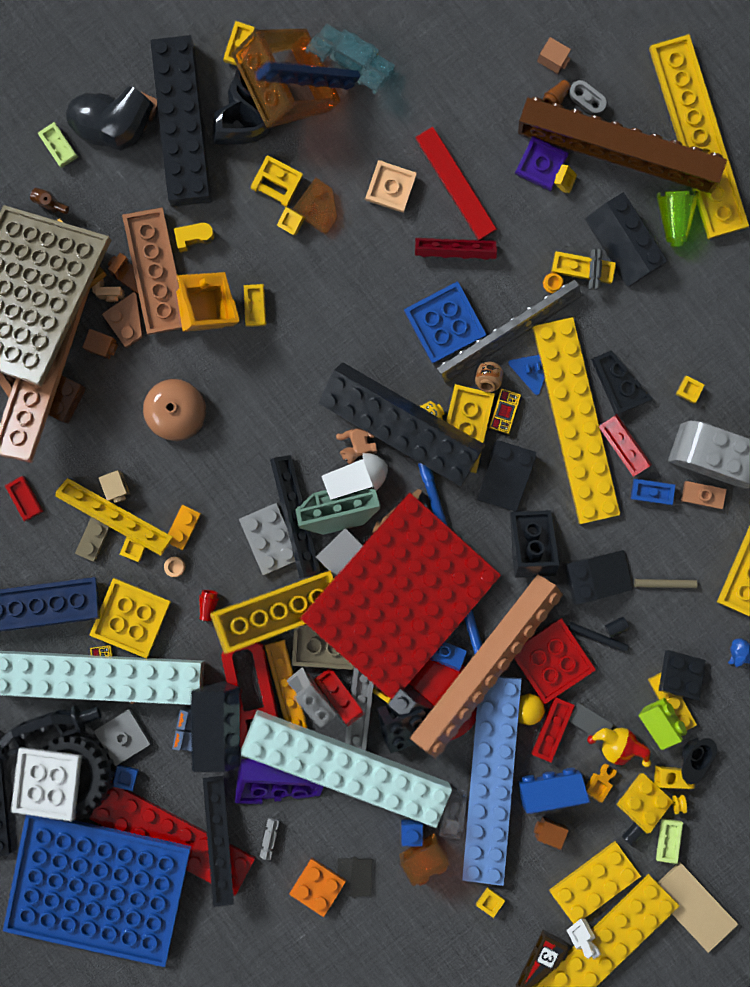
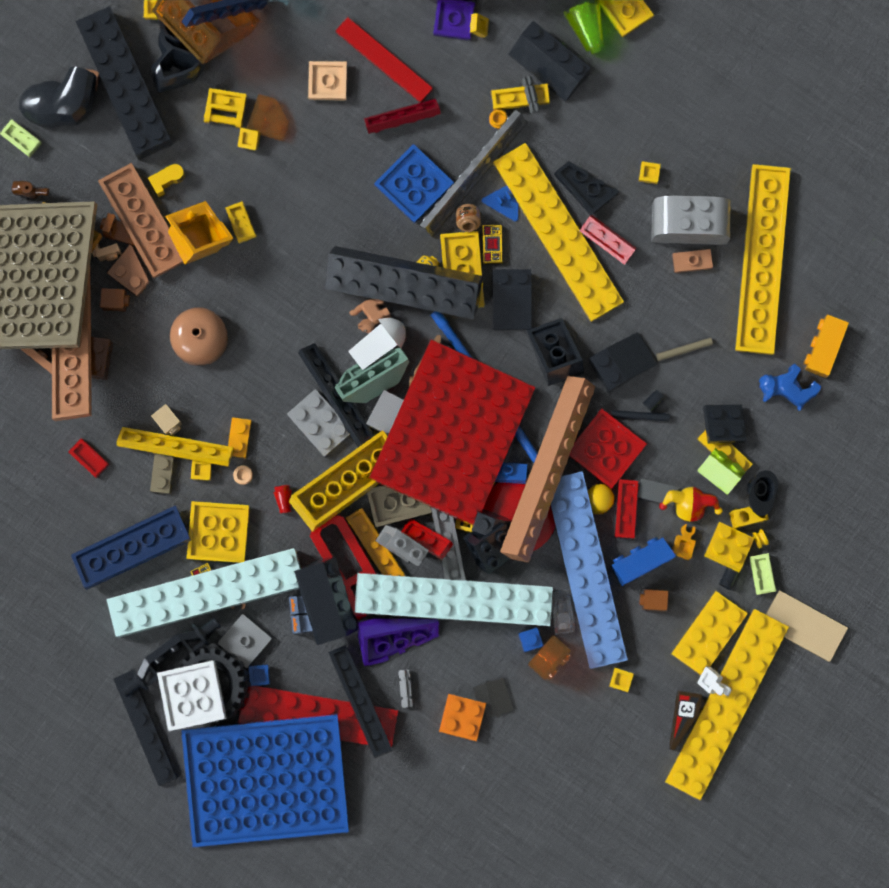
camera: 10 degrees left, 5 degrees down
(652, 492) = (646, 272): blue plate -> none

